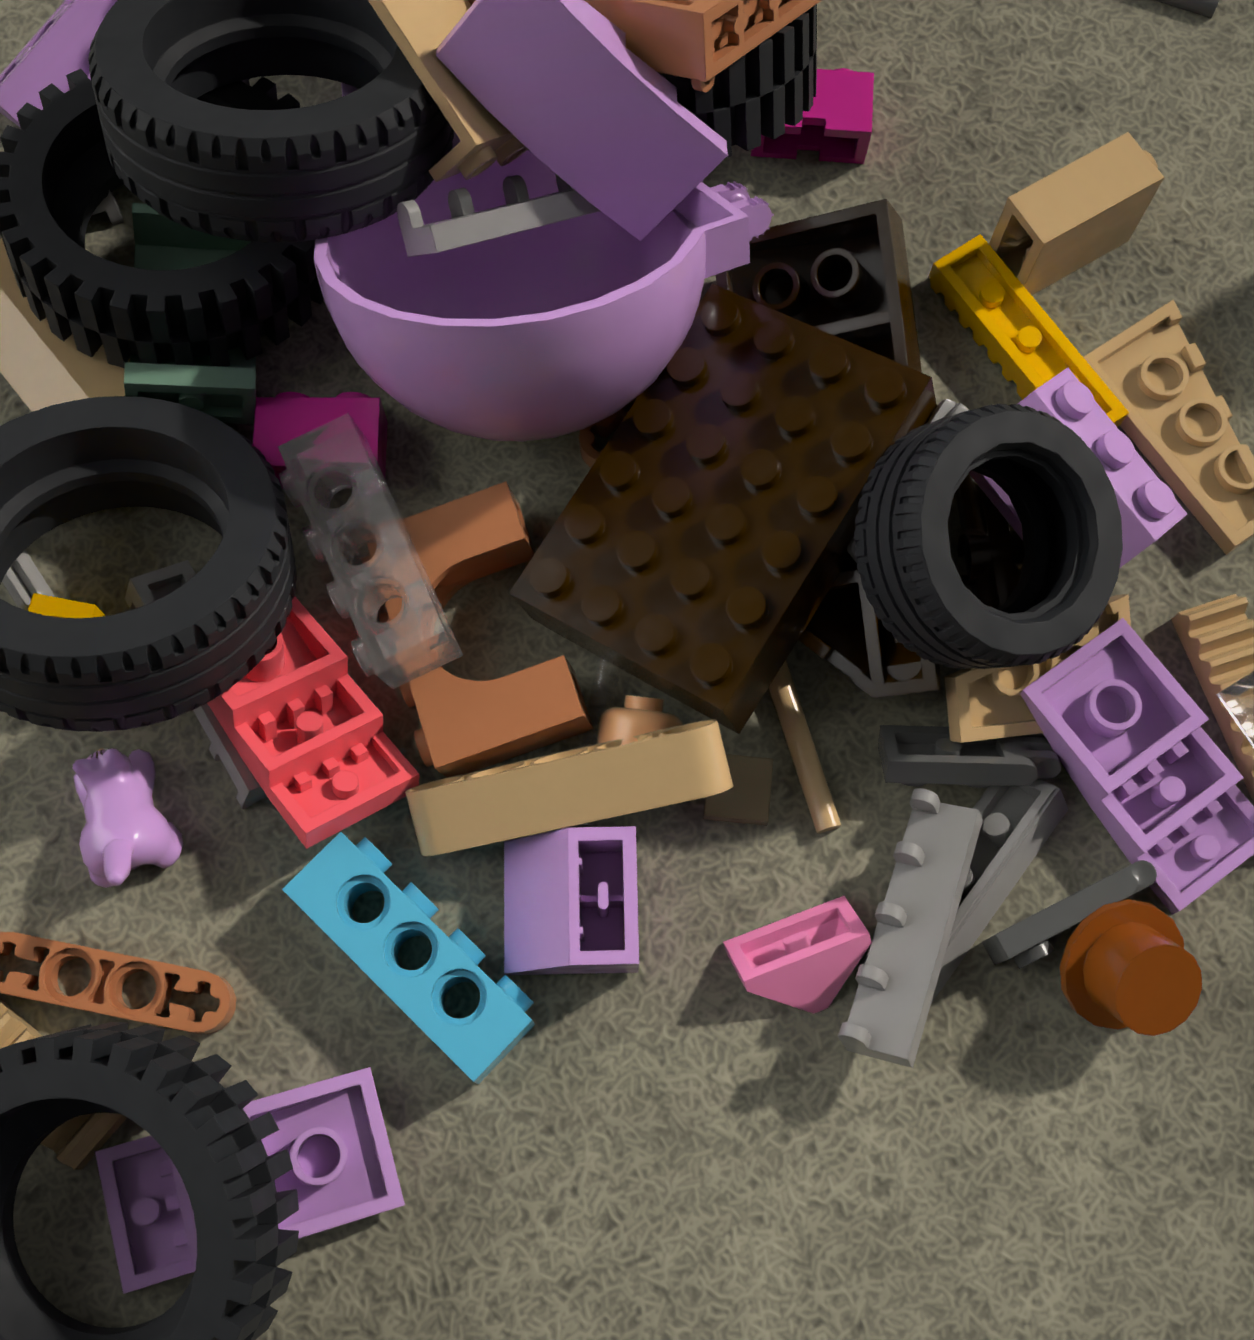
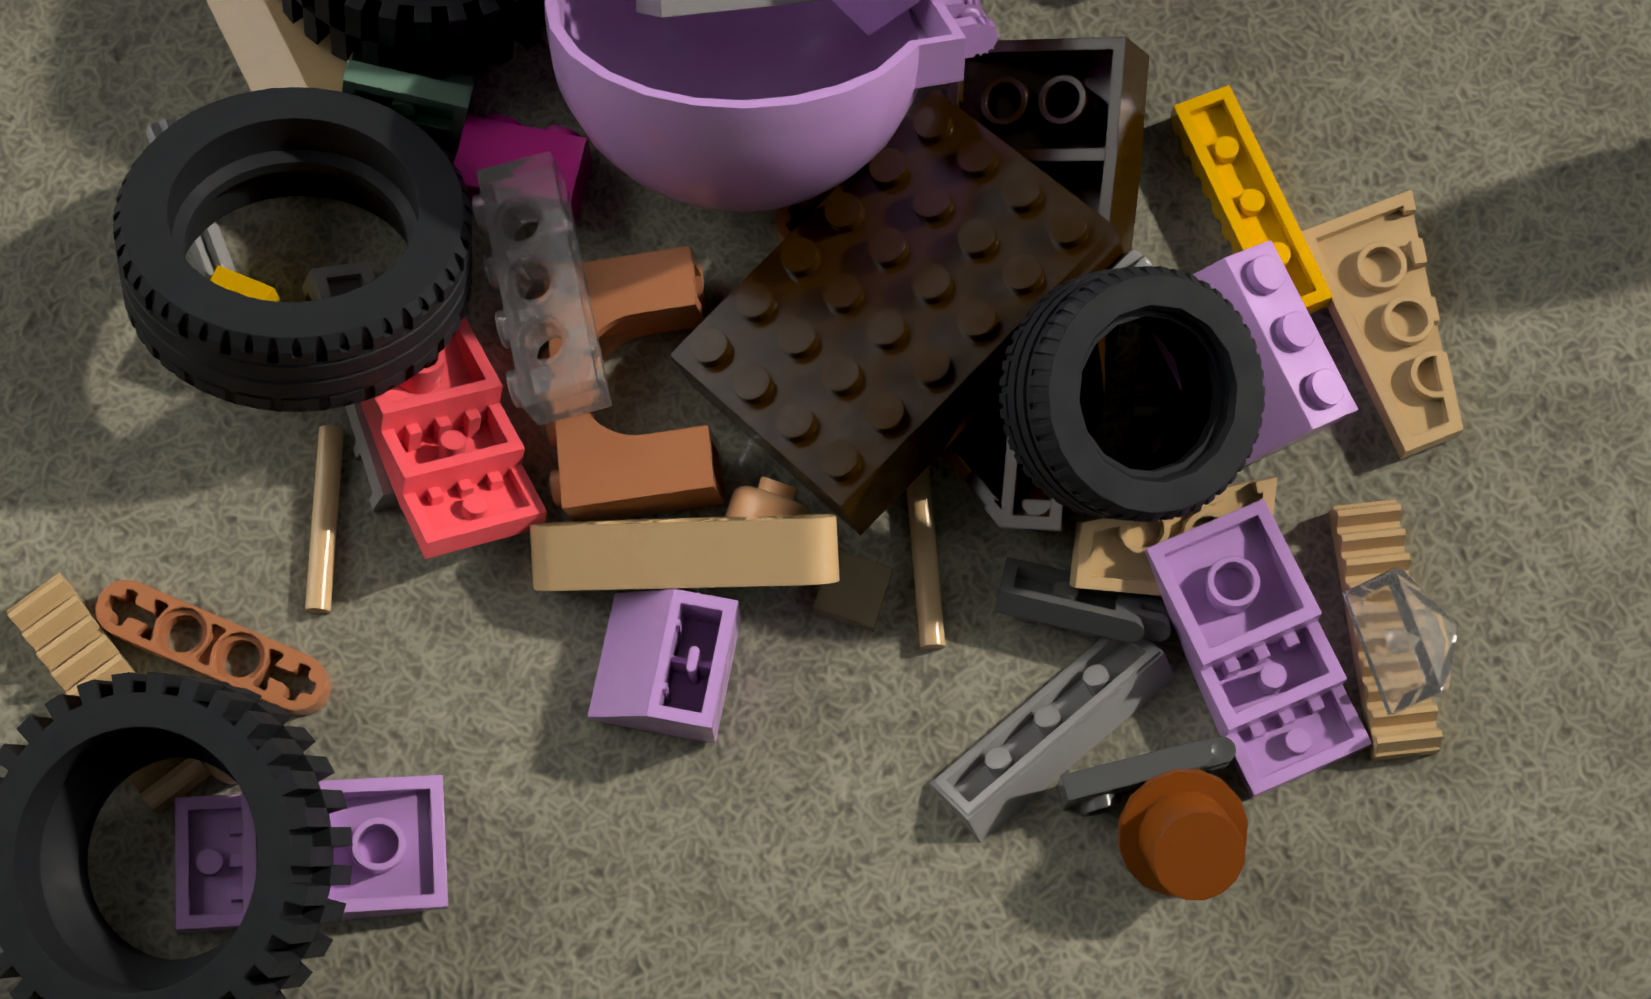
camera: 15 degrees right, 0 degrees up
(120, 816) = (258, 495): lavender animal -> none
(194, 828) = (324, 519): none -> tan bar
(327, 895) = (438, 606): medium azure brick -> none
(801, 956) = (875, 762): bright pink slope -> none
(912, 931) = (985, 755): light grey hinge -> none
(1076, 213) = (1325, 85): tan brick -> none

